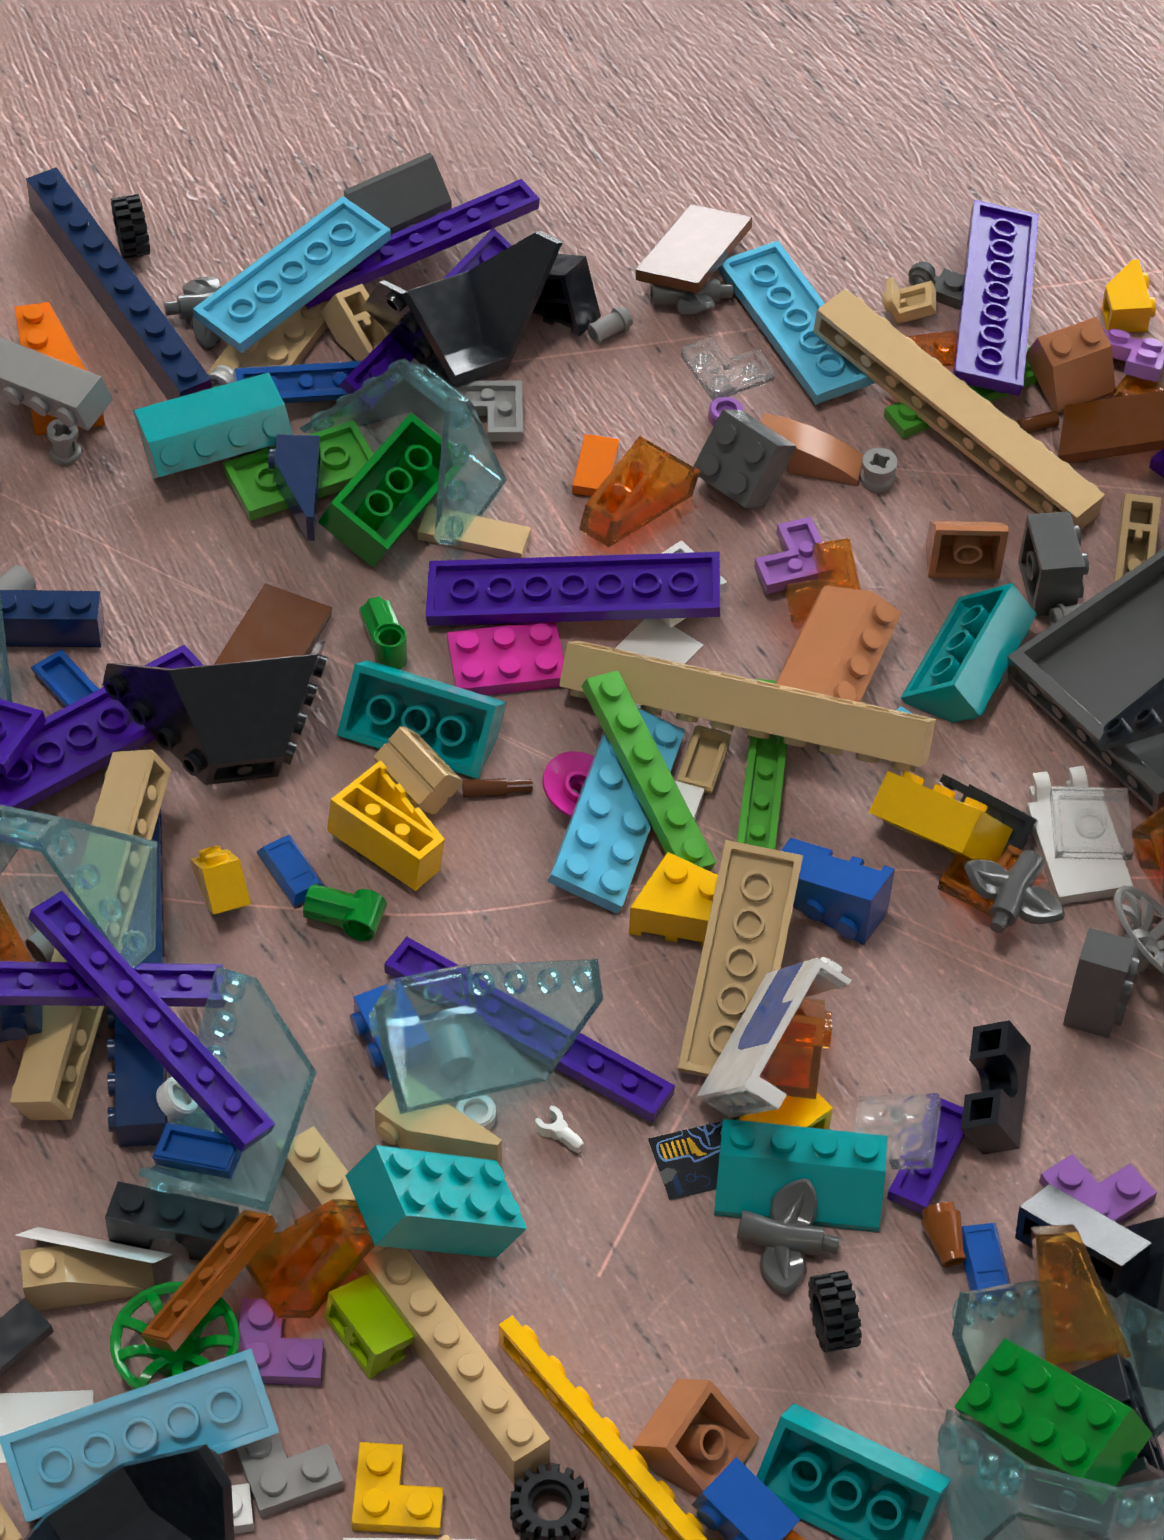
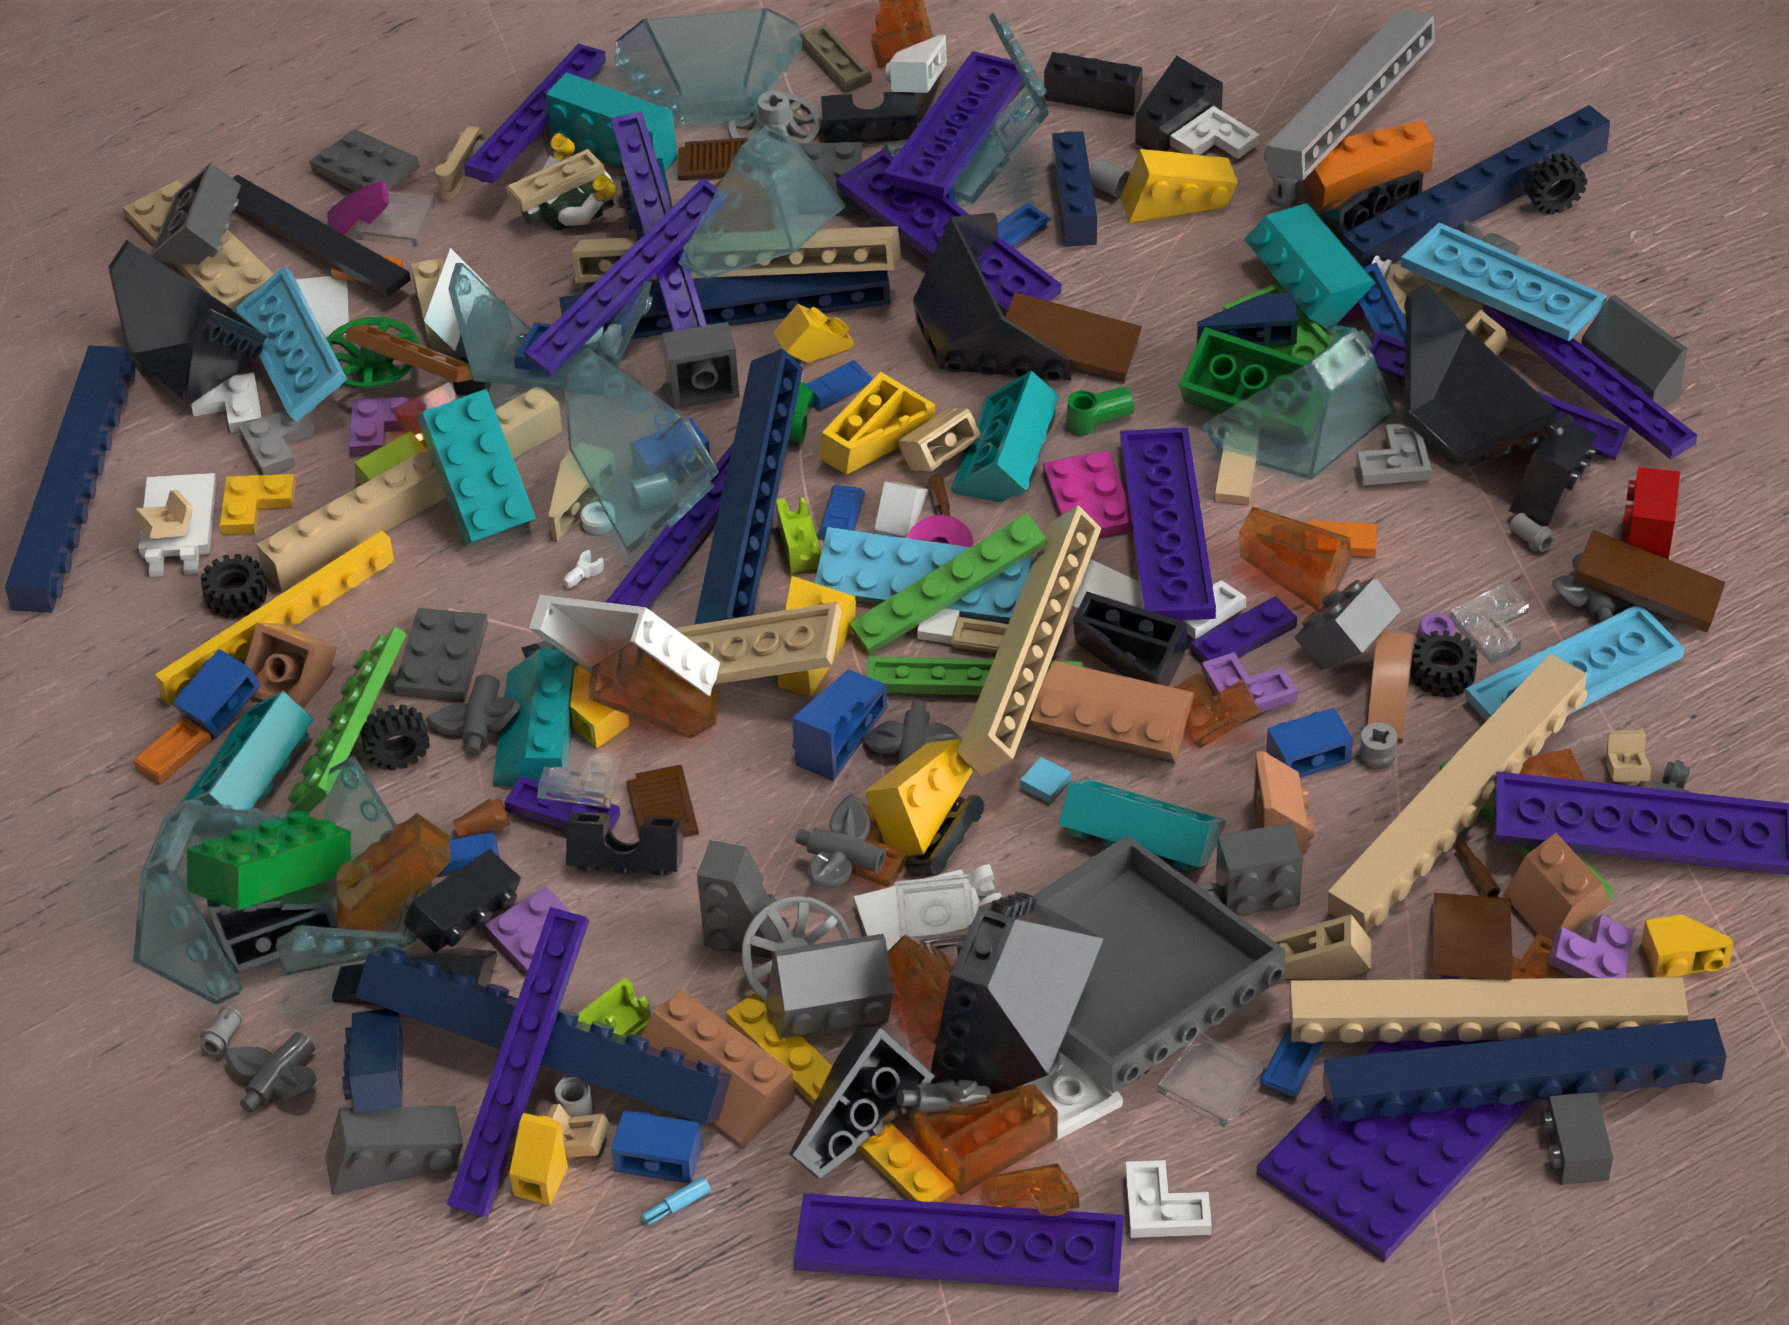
camera: 90 degrees right, 5 degrees down
(50, 529) = (1176, 185): none -> yellow wedge
(130, 377) = (1364, 205): none -> black wedge
(266, 956) = (701, 365): none -> dark grey brick
(490, 938) = (750, 489): none -> dark blue brick
(499, 879) = (842, 509): none -> blue tile
(504, 819) = (899, 508): none -> white slope
(542, 918) = (798, 537): none -> lime hinge
(621, 226) = (1652, 510): none -> red brick
(679, 1279) = (441, 655): none -> dark grey plate
(704, 535) = (1245, 631): none -> dark purple plate
(746, 628) = (1130, 638): none -> black wedge
(777, 395) = (1444, 648): none -> black tyre
(812, 1361) = (346, 719): none -> bright green plate
(851, 828) = (910, 736): none -> dark grey plant
(877, 518) = (1311, 742): none -> blue brick
(917, 1065) = (662, 794): none -> reddish brown window

